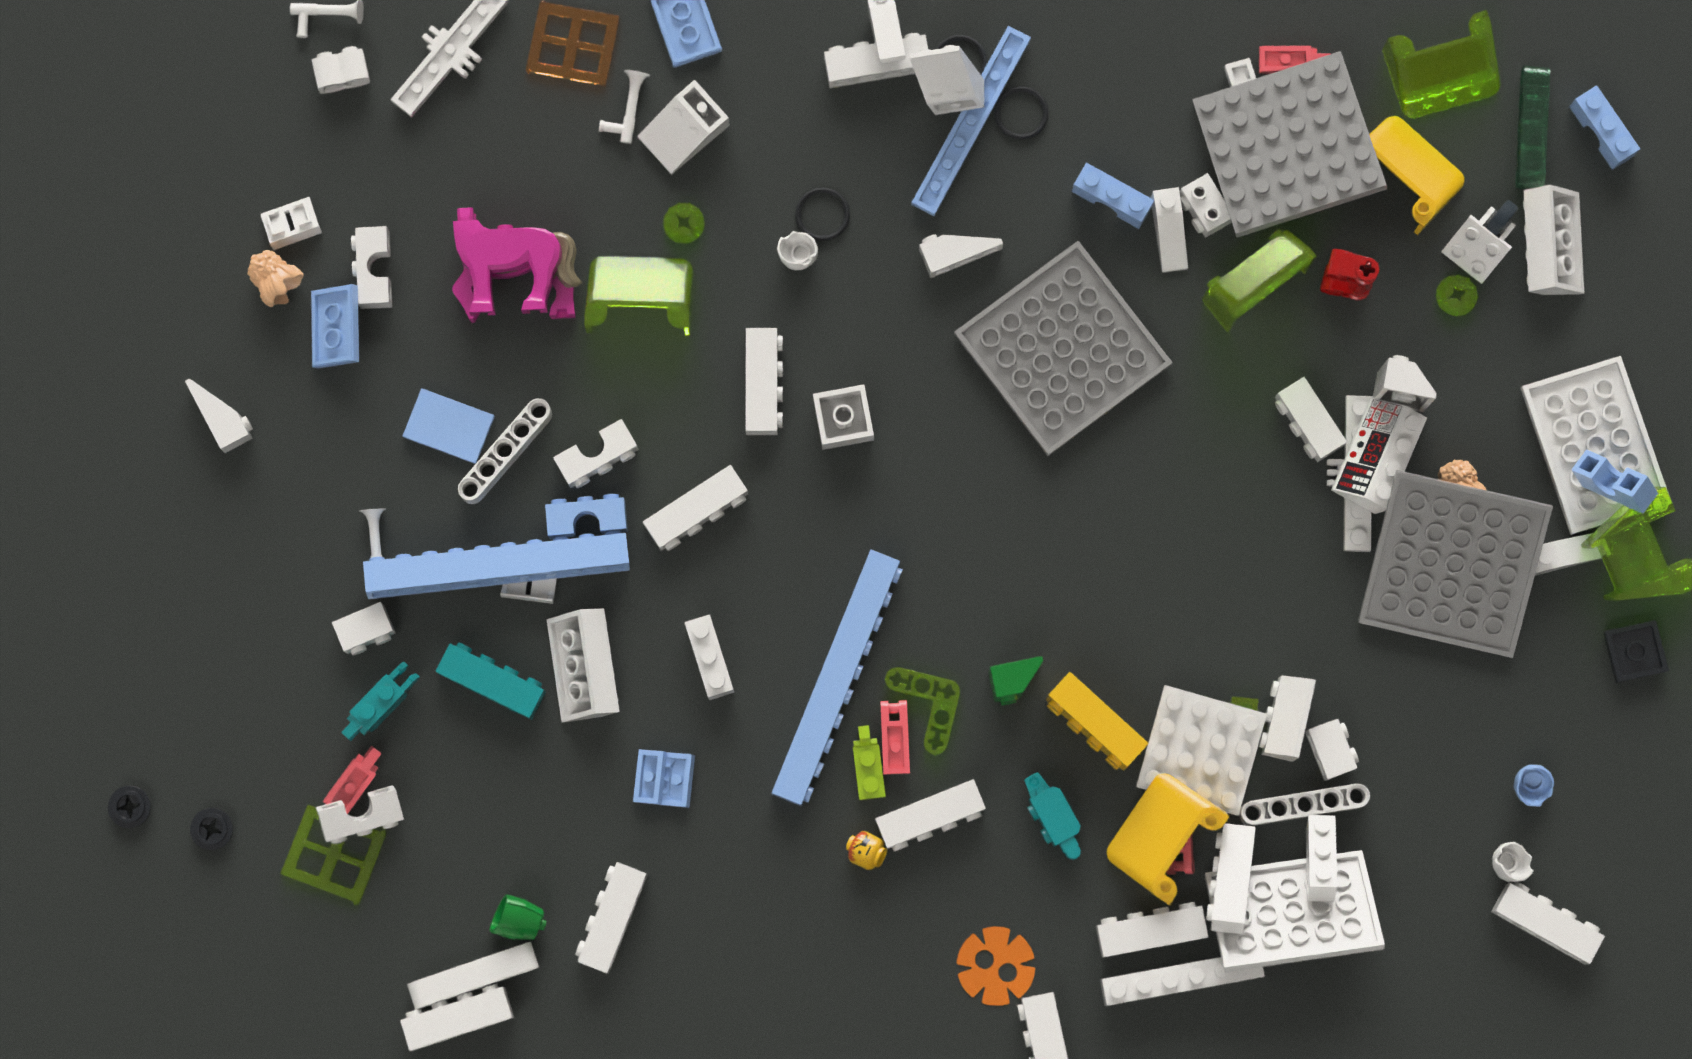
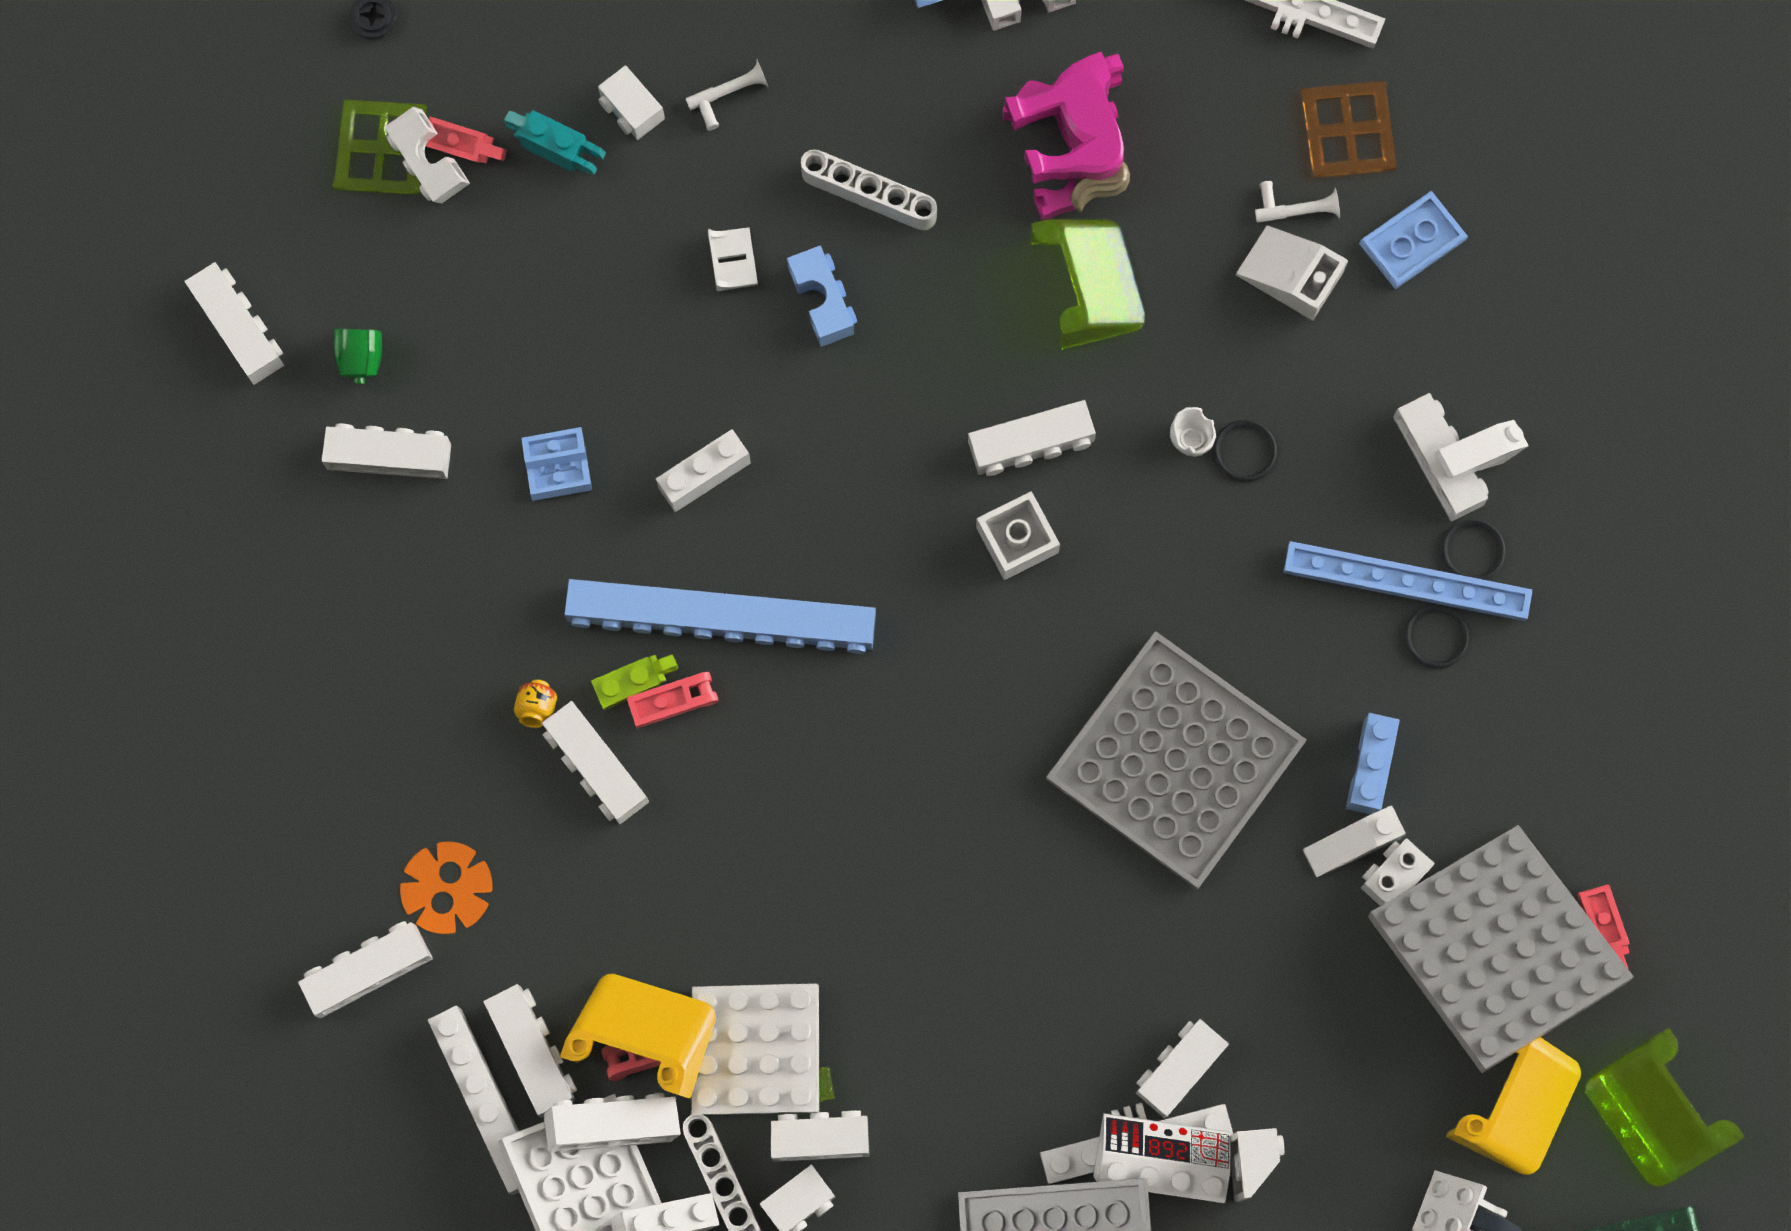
camera: 75 degrees right, 5 degrees down
(448, 426) = (879, 125): light blue tile -> none
(473, 975) = (285, 326): white beam -> none
(491, 681) = (611, 249): teal brick -> none
(496, 565) = (739, 217): light blue brick -> none
(579, 468) = (911, 304): white arch -> none
(582, 665) = (657, 341): white slope -> none
(683, 234) = (1190, 316): clear neon green gear -> none
(695, 508) = (866, 408): white brick -> none
(939, 702) = (725, 737): clear neon green beam -> none
(948, 80) = (1442, 534): white slope -> none
(951, 251) = (1246, 601): white slope -> none
(1012, 678) = (772, 809): green slope -> none
(1054, 815) = (632, 902): teal hinge -> none
(1096, 721) = (751, 916): yellow brick -> none
(1239, 72) = (1569, 870): white plate -> none
(1257, 277) = (1330, 954): clear neon green windscreen -> none
(1349, 275) = (1363, 1057): red piece -> none
(1454, 306) = (1372, 1203): clear neon green gear -> none

